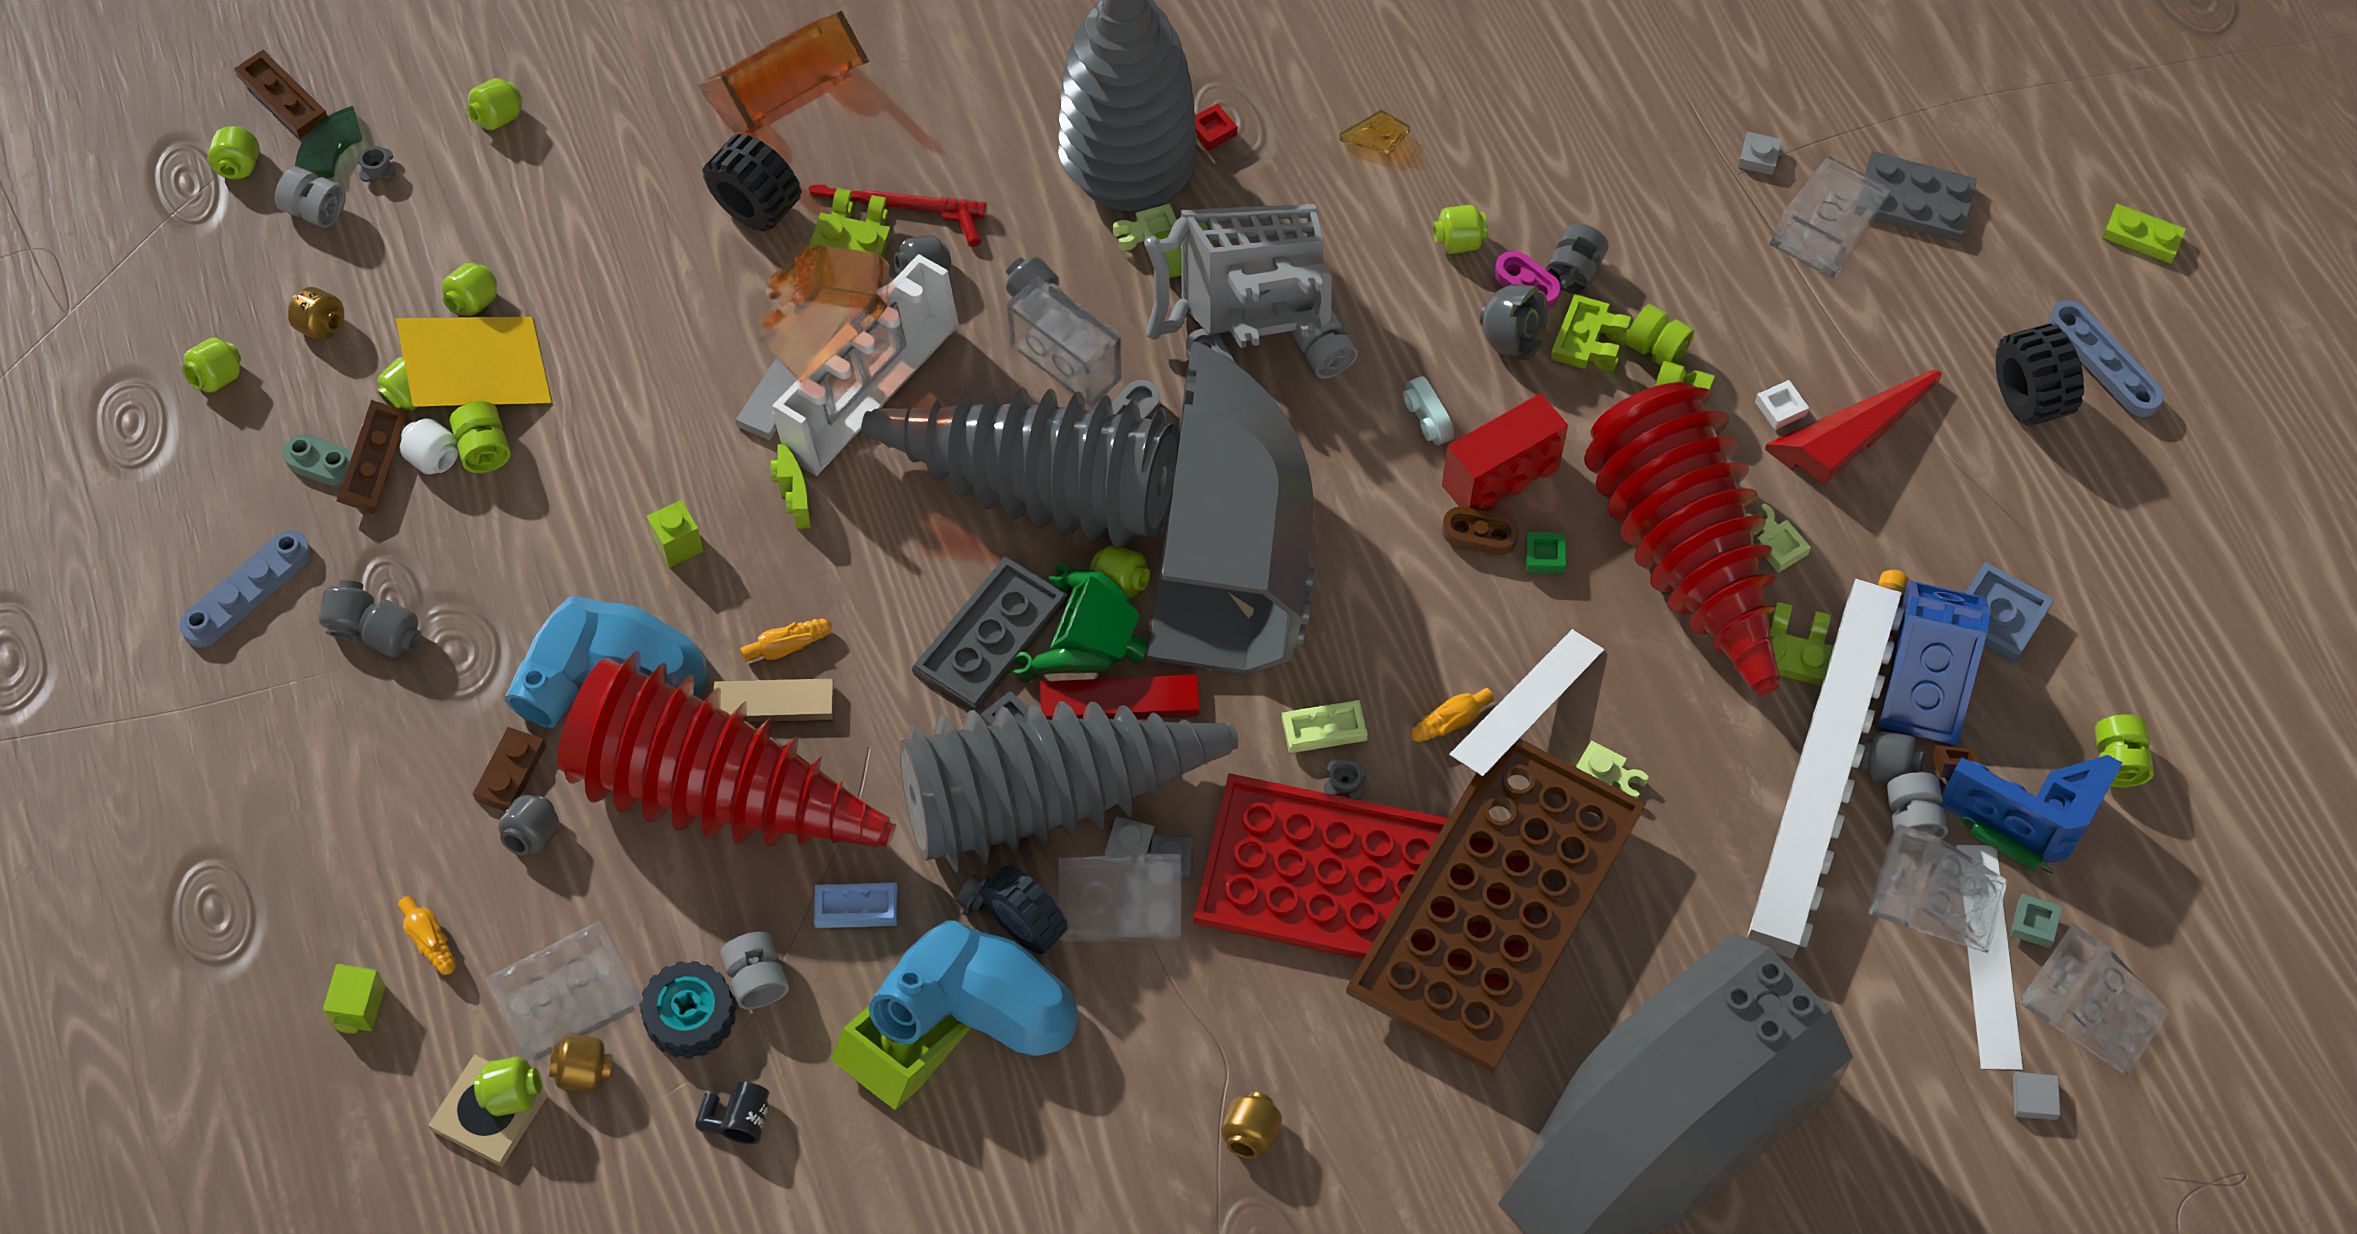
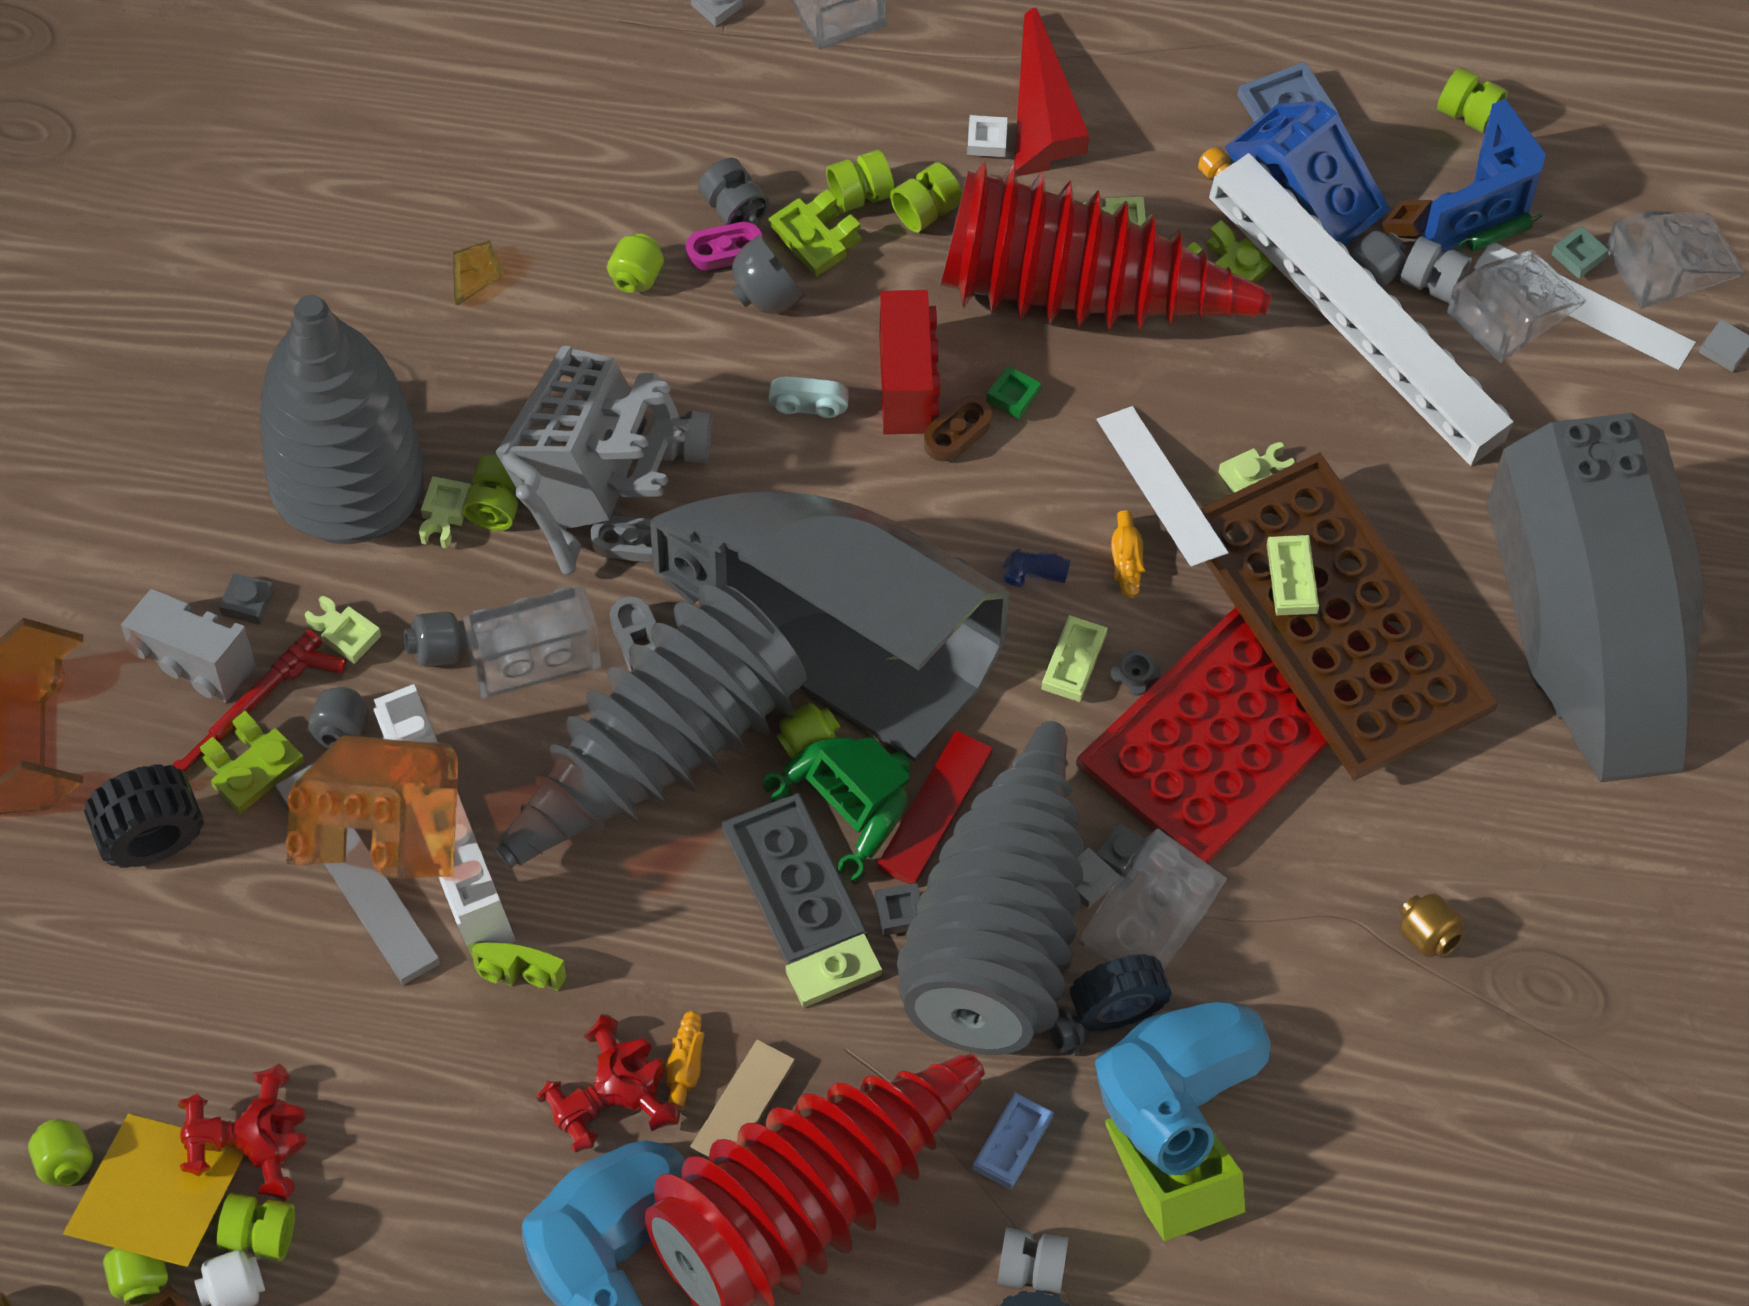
camera: 60 degrees left, 0 degrees up
(556, 400) = (262, 1133): none -> red piece
(675, 533) = (501, 1097): lime brick -> none
(739, 605) = (621, 1080): none -> red piece
(918, 137) = (190, 645): none -> light grey wedge
(926, 699) = (833, 970): none -> yellowish green plate
(988, 152) = (246, 598): none -> dark grey plate
(1002, 225) = (345, 632): none -> yellowish green plate
(1394, 657) = (1039, 565): none -> clear blue arm
(1499, 838) = (1292, 575): none -> yellowish green plate

